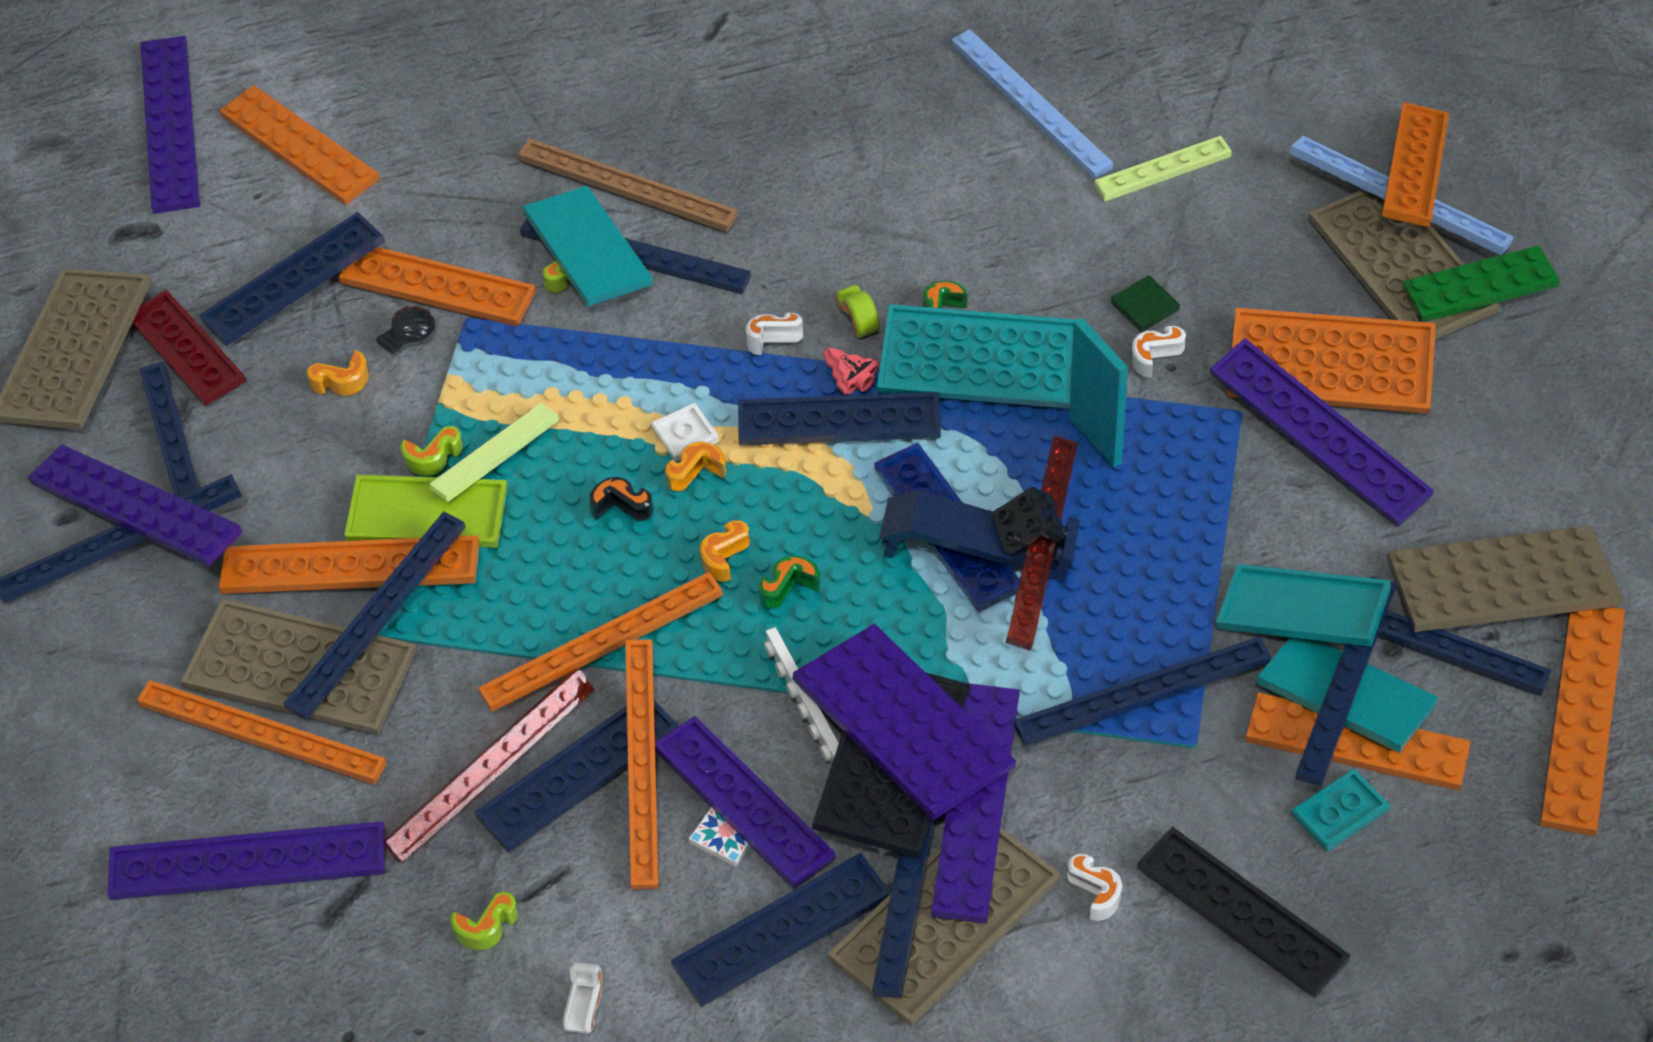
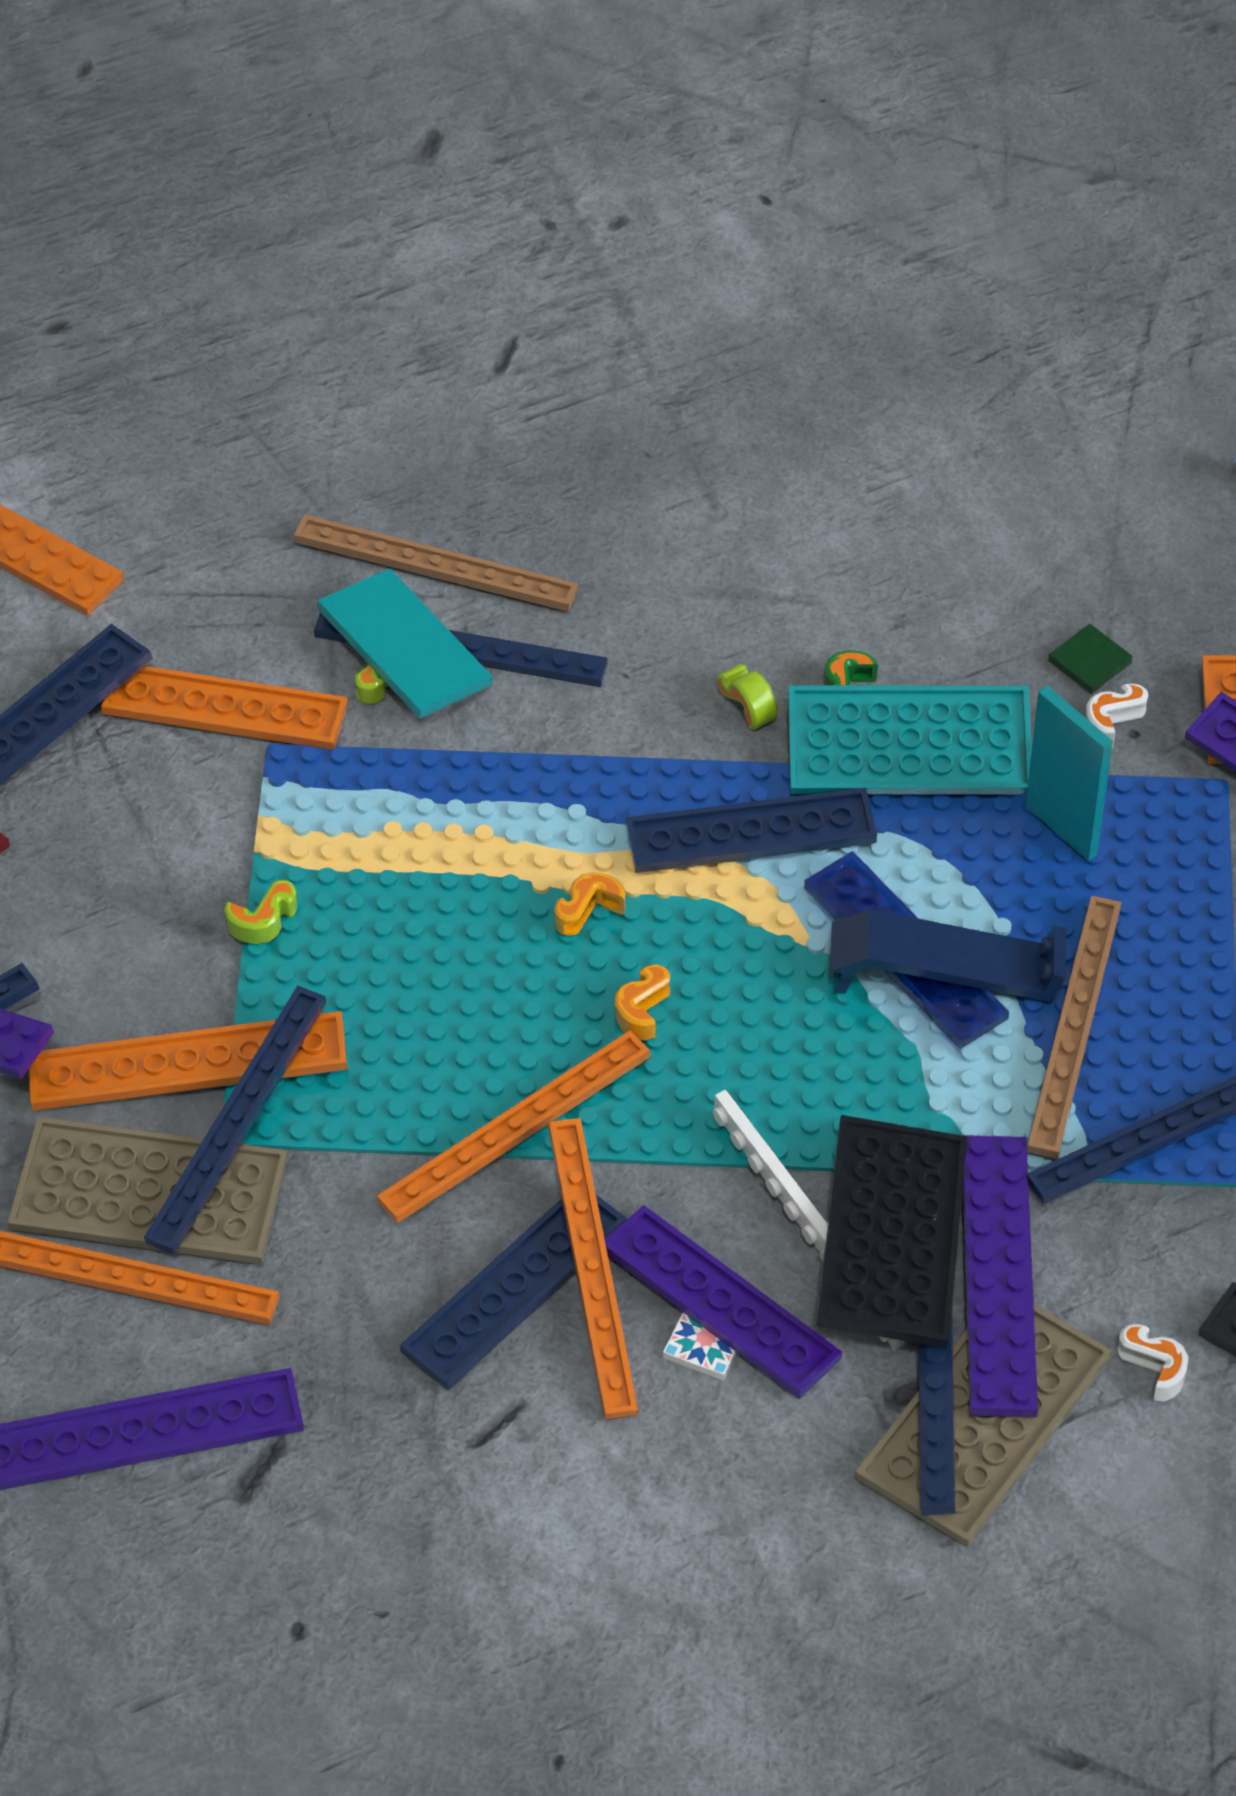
camera: 10 degrees left, 0 degrees up
(340, 380) = (126, 834): light orange animal -> none
(407, 326) = (200, 760): black animal -> none
(407, 508) = (256, 982): lime tile -> none
(487, 766) = (404, 1289): clear red plate -> none
(488, 928) = (444, 1484): lime animal -> none
(494, 452) = (339, 908): yellowish green tile -> none
(583, 997) = (574, 1553): white animal -> none
(620, 493) = (506, 945): black animal -> none
(683, 428) = (564, 860): white tile -> none
(773, 329) = (650, 727): white animal -> none
(780, 929) = (792, 1449): dark blue plate -> none
(785, 574) = (722, 1023): green animal -> none
(850, 371) = (754, 770): coral rock -> none
(904, 721) = (900, 1187): dark purple plate -> none
(1027, 519) = (1004, 934): black bracket -> none
(1032, 104) = (911, 423): light blue plate -> none
(1040, 551) = (1024, 960): clear red plate -> none
(1075, 603) = (1074, 1028): none -> medium nougat plate
(1162, 168) = (1082, 491): yellowish green tile -> none

